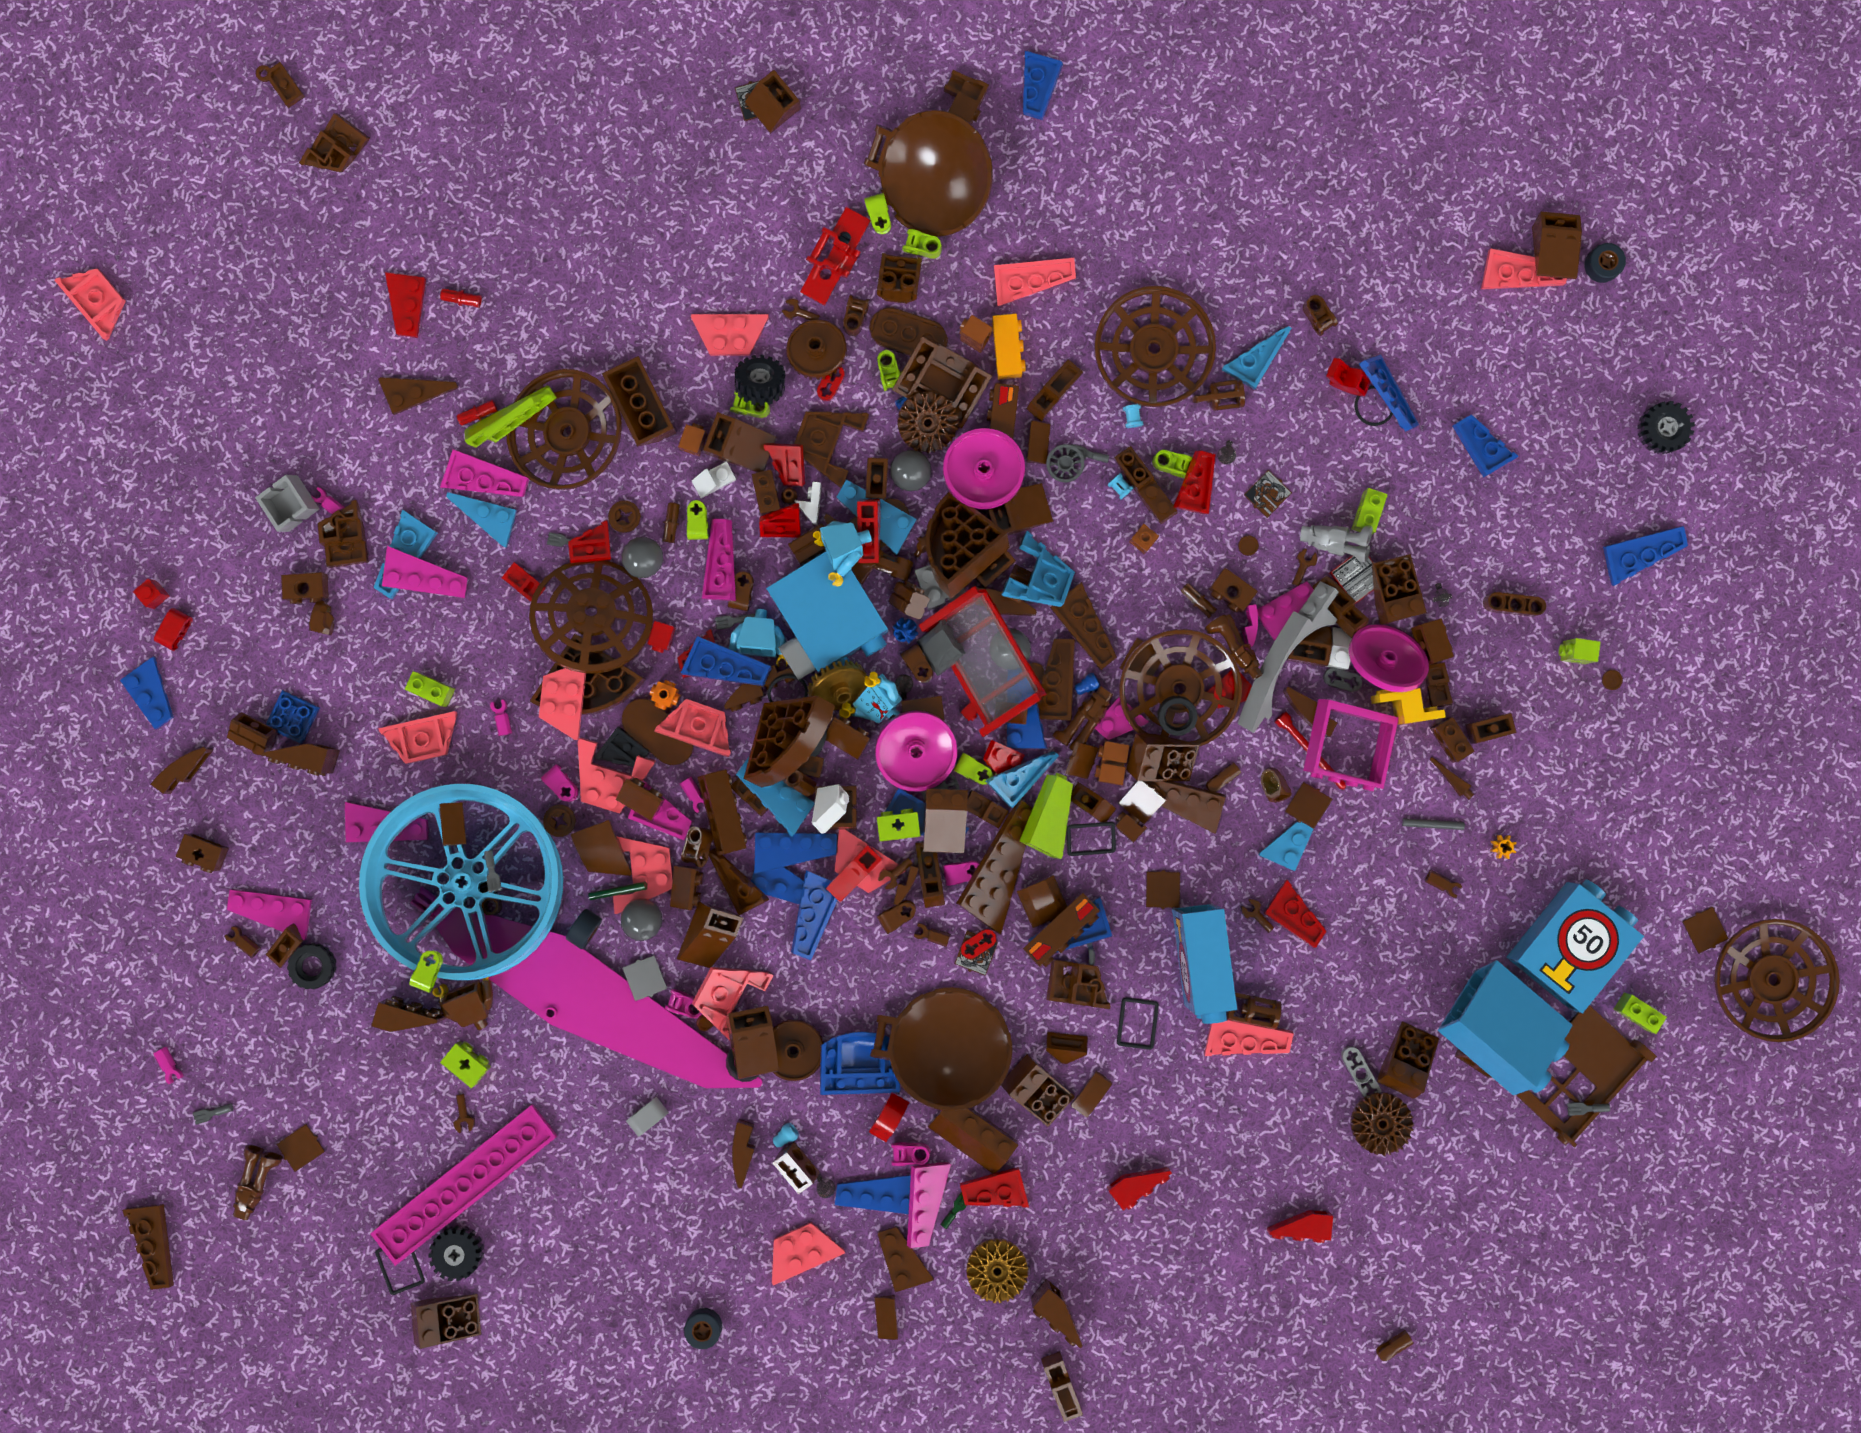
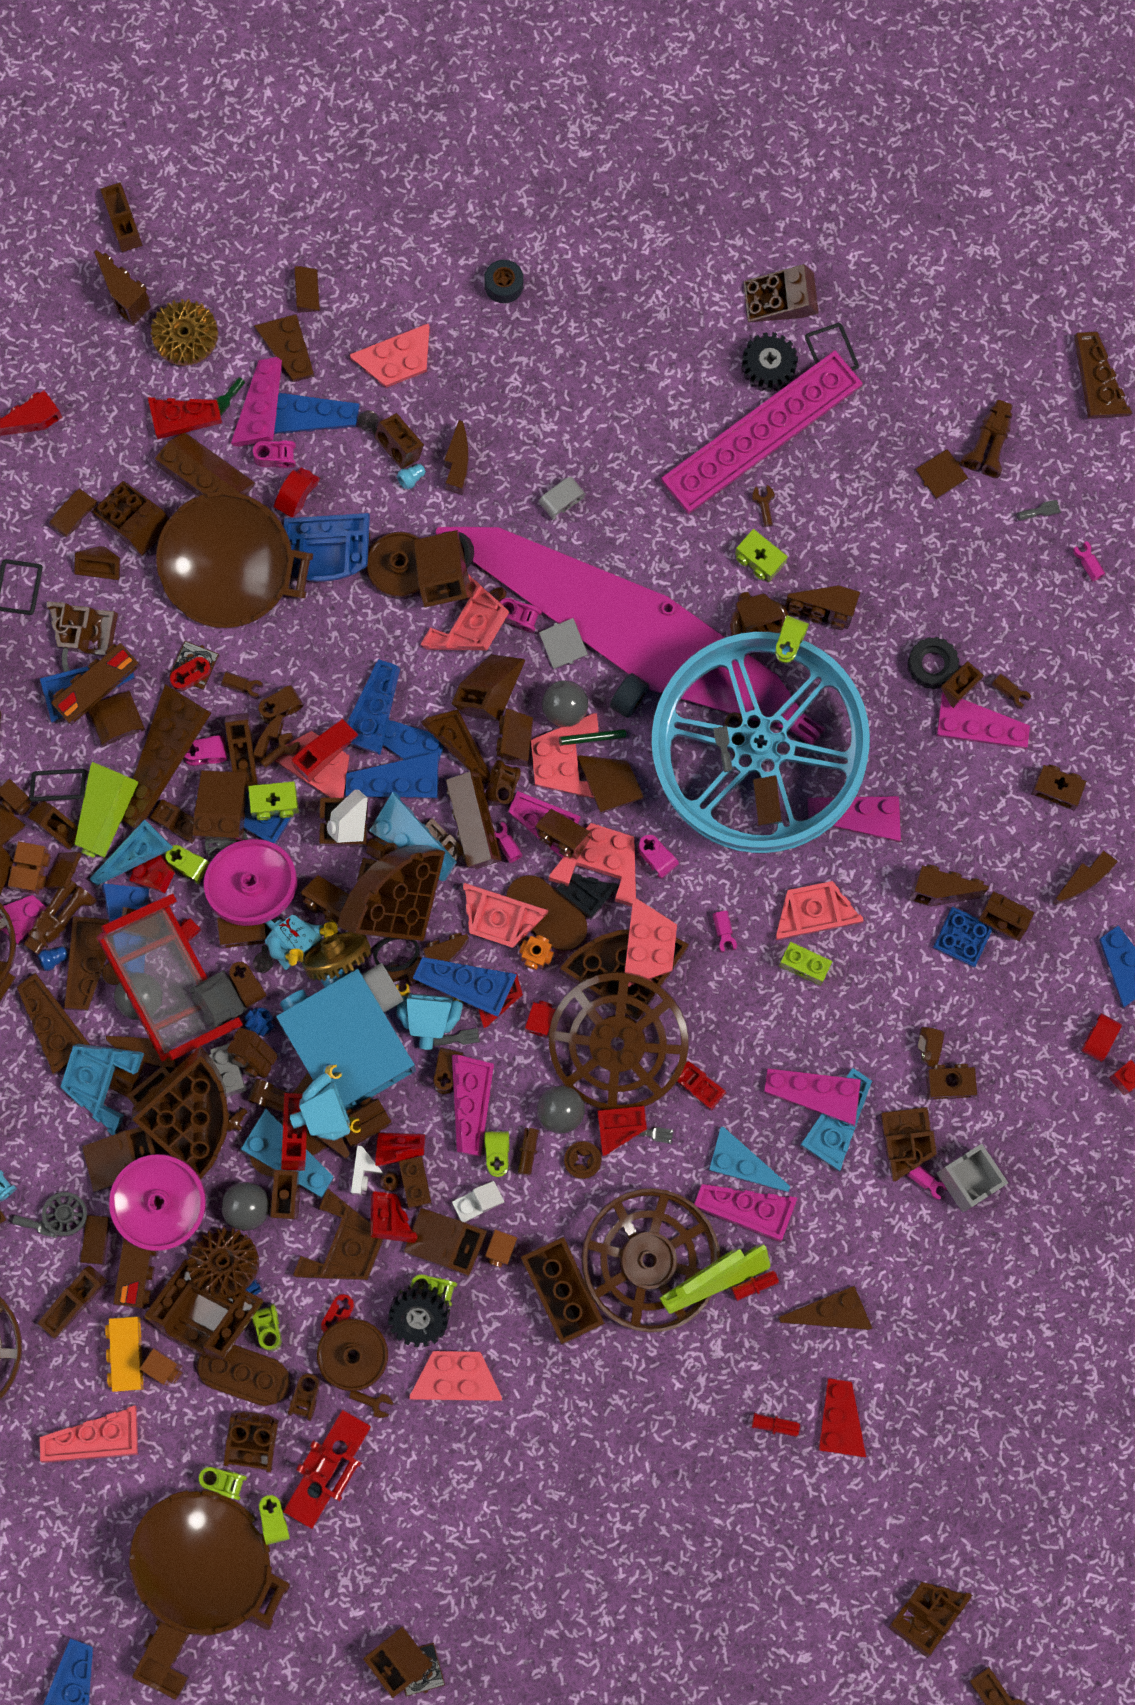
camera: 175 degrees right, 10 degrees down
(550, 823) = (654, 806): reddish brown gear -> none

